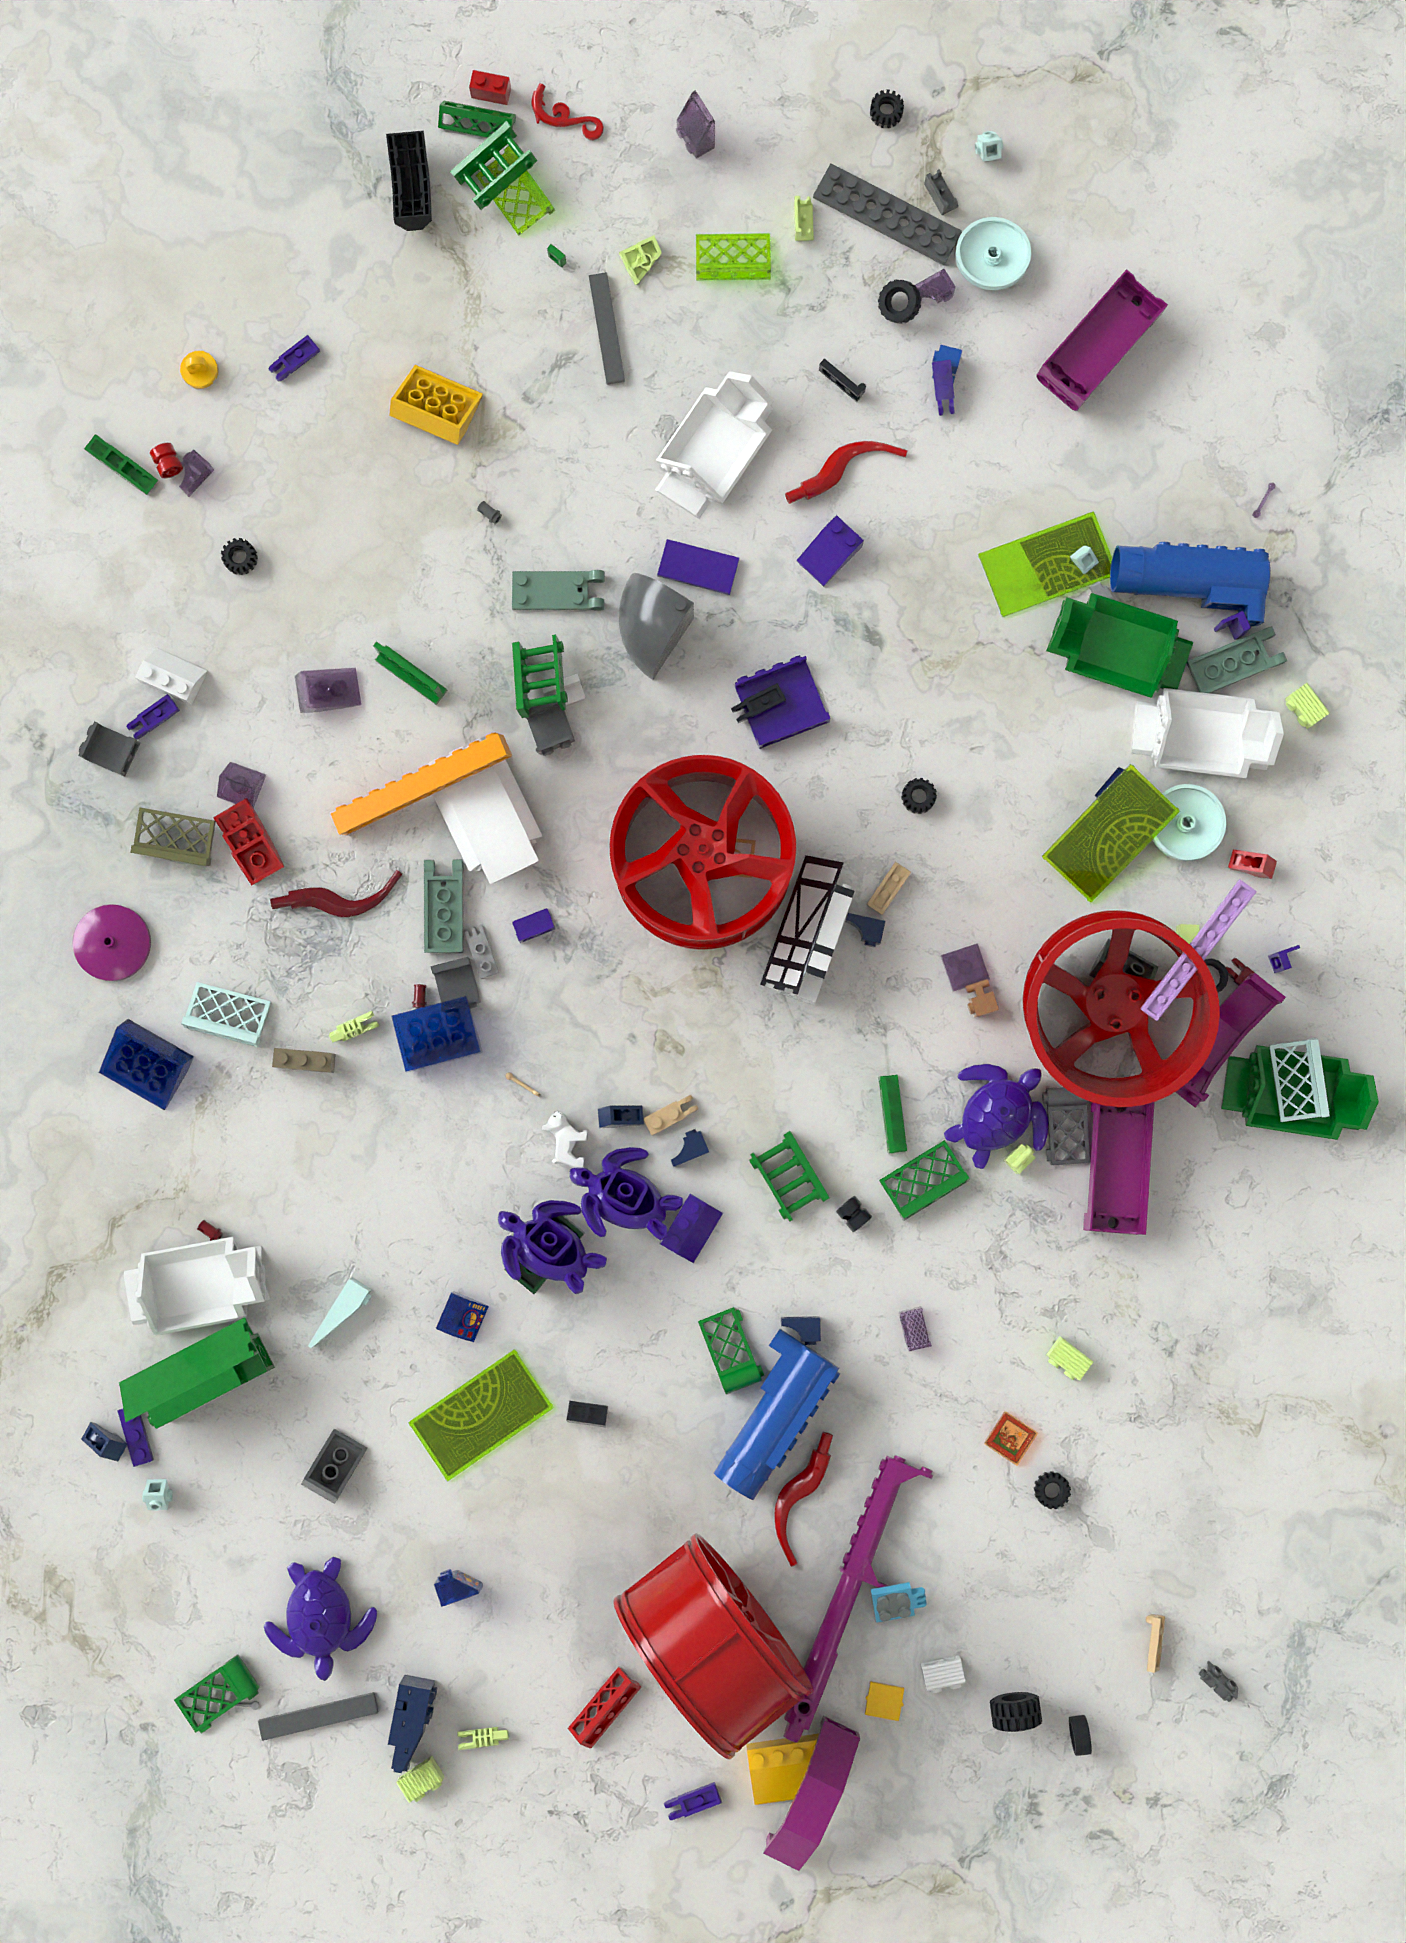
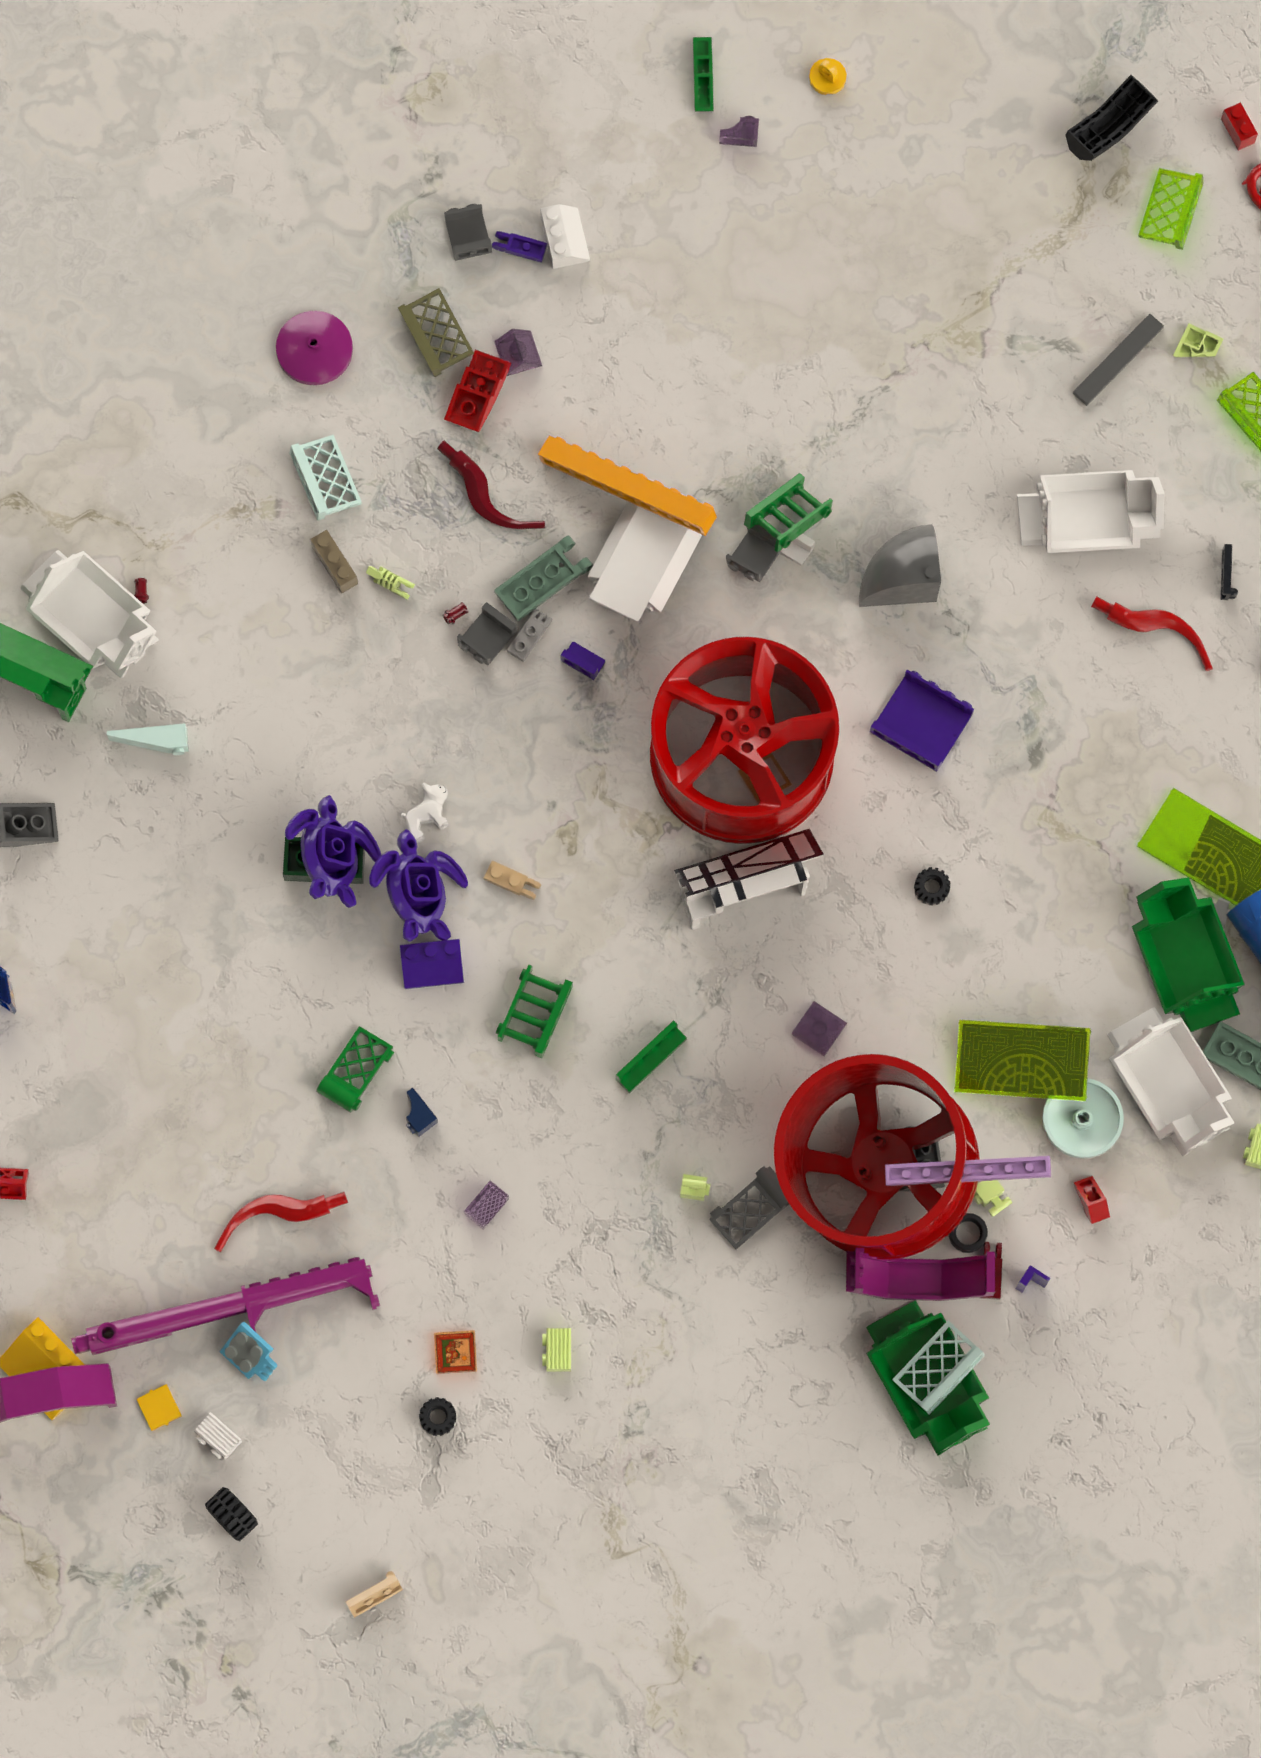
camera: 50 degrees right, 10 degrees down
(145, 1063) = (237, 443): clear blue slope -> none
(165, 457) = (735, 102): red wheel -> none
(228, 553) = (701, 205): black tyre -> none
(294, 357) = (896, 140): dark purple hinge -> none
(327, 689) = (648, 361): clear purple slope -> none
(409, 673) = (711, 413): green fence -> none
(435, 404) = (946, 273): yellow slope -> none
(436, 1034) = (434, 647): clear blue slope -> none
(462, 1317) = (220, 835): clear blue slope -> none
(473, 113) = (1210, 133): green fence -> none
(480, 1415) = (152, 910): clear neon green piece -> none
(482, 154) = (1179, 160): green fence -> none
(492, 514) = (892, 379): dark grey pin -> none
(509, 1076) = (445, 731): tan hinge -> none
(555, 590) = (870, 477): sand green hinge -> none
(556, 255) = (1144, 277): green tile -> none
(587, 1413) = (216, 991): black hinge -> none
(620, 1116) = (480, 840): dark blue arch -> none
(693, 1147) = (498, 917): dark blue arch -> none
(698, 567) = (980, 573): dark purple tile -> none
(712, 1647) = (108, 1203): red wheel -> none
(760, 702) = (907, 702): black hinge -> none
(788, 1400) = (360, 1141): blue piece -> none
(830, 550) = (1078, 667): dark purple slope -> none
(854, 1214) = (543, 1085): black wheel -> none
(869, 928) = (790, 927): dark blue arch -> none
(889, 888) = (836, 917): tan hinge -> none
(933, 1194) = (606, 1137): green fence -> none
(983, 1002) = (800, 1062): medium nougat brick -> none
(999, 1112) = (719, 1142): dark purple animal -> none
(1080, 1735) = (250, 1584): black tyre -> none
(1084, 559) = (1238, 876): light aqua slope -> none
(1120, 1169) = (749, 1268): magenta piece -> none
(1226, 1687) = (381, 1683): dark grey hinge -> none

